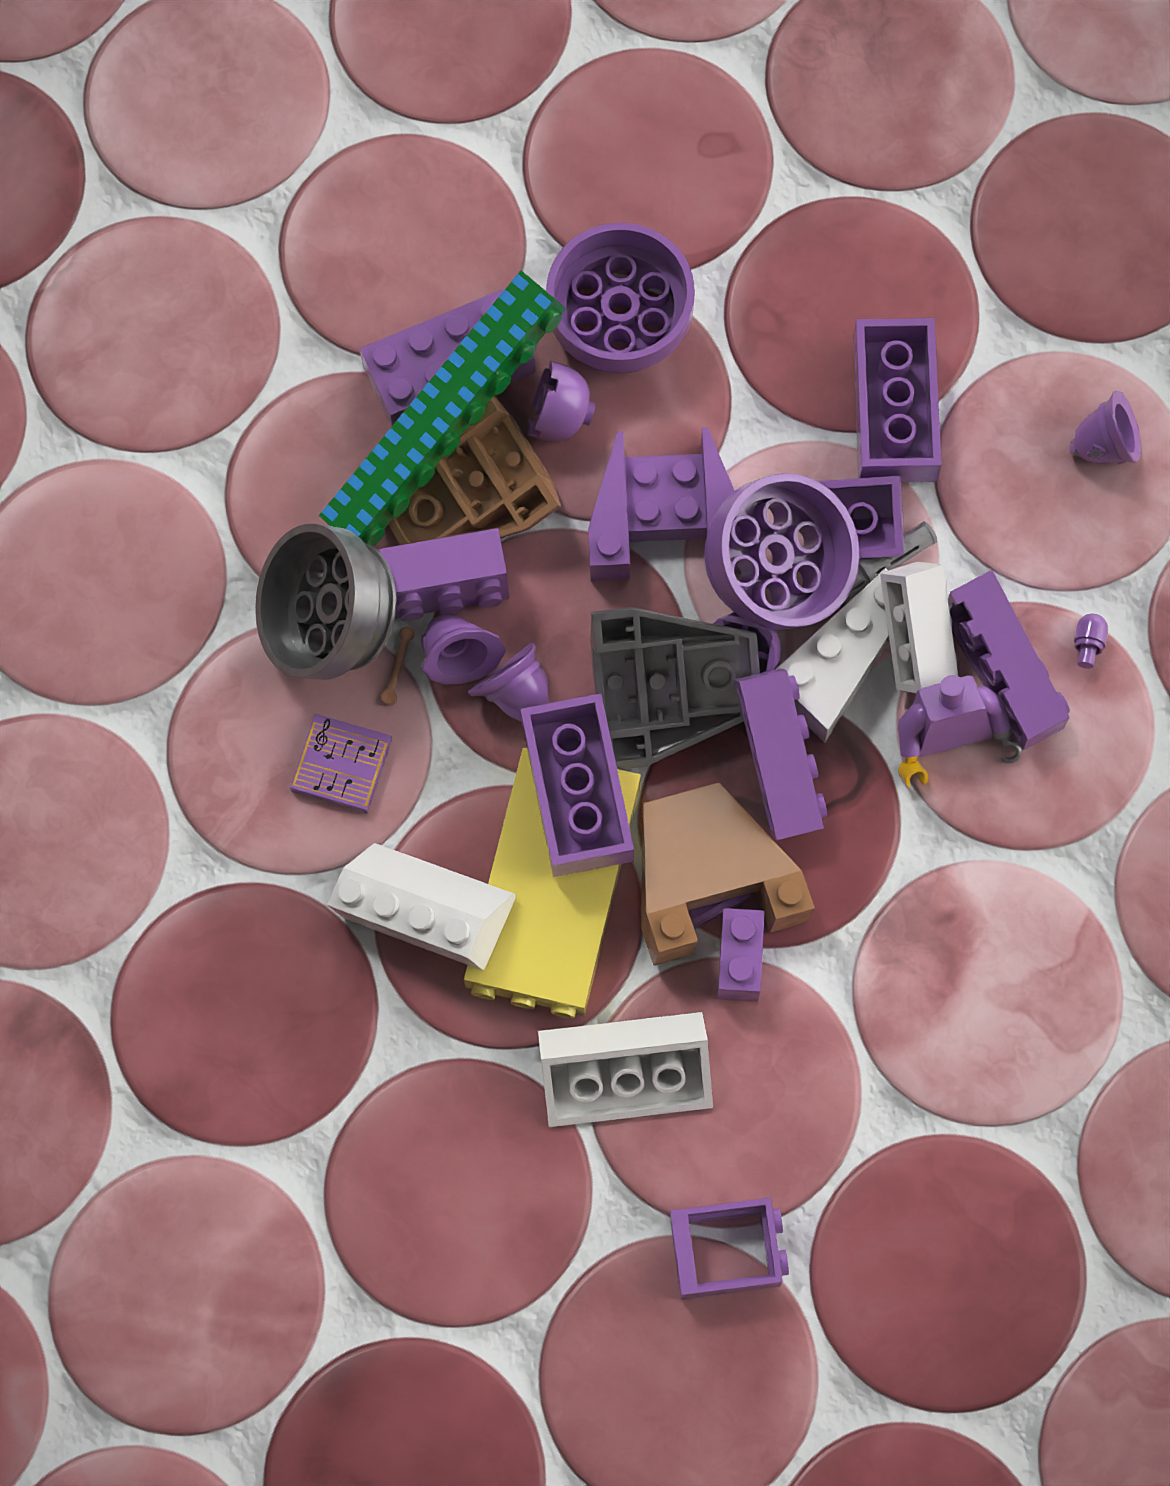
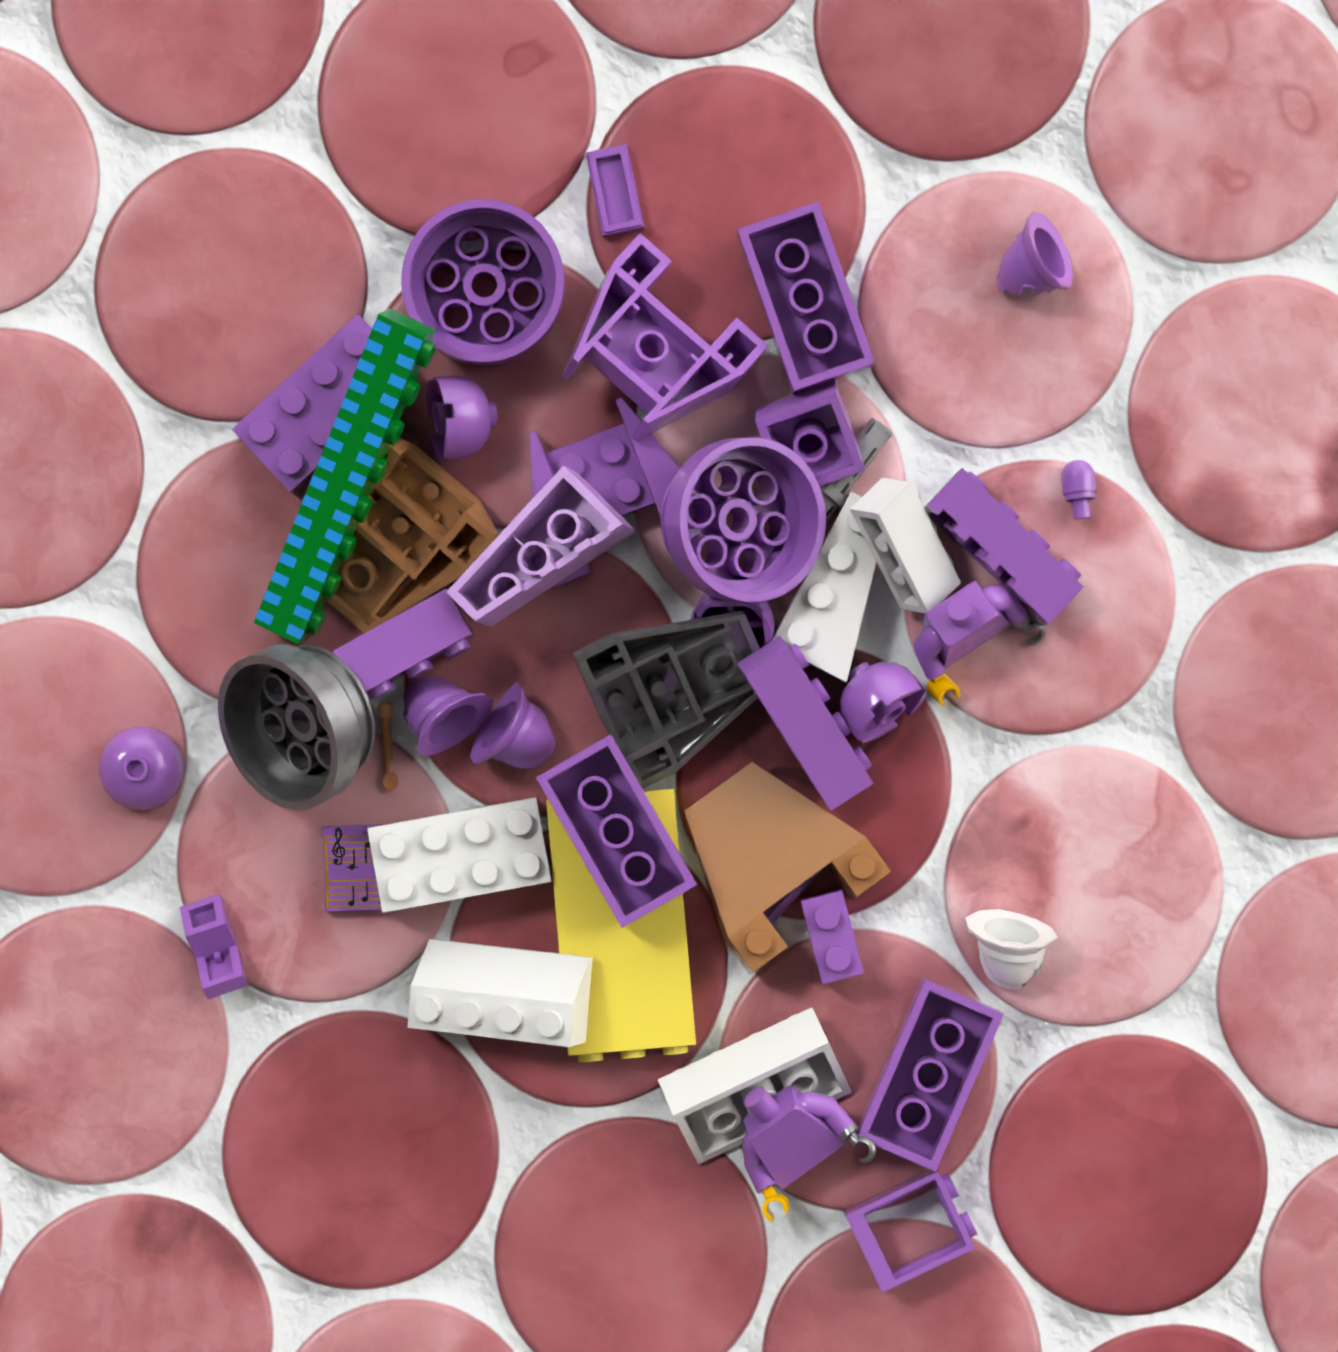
camera: 20 degrees left, 15 degrees up
(174, 613) = (141, 768): none -> medium lavender cylinder
(180, 785) = (214, 946): none -> medium lavender slope
(427, 772) = (459, 854): none -> white brick
(592, 520) = (541, 546): none -> lavender wedge
(644, 1120) = (792, 1136): none -> medium lavender torso
(751, 398) = (652, 350): none -> medium lavender wedge
(759, 270) = (614, 190): none -> medium lavender tile
(790, 1106) = (929, 1073): none -> medium lavender brick
(853, 757) = (878, 697): none -> medium lavender cylinder
(901, 1020) = (1009, 945): none -> white piece

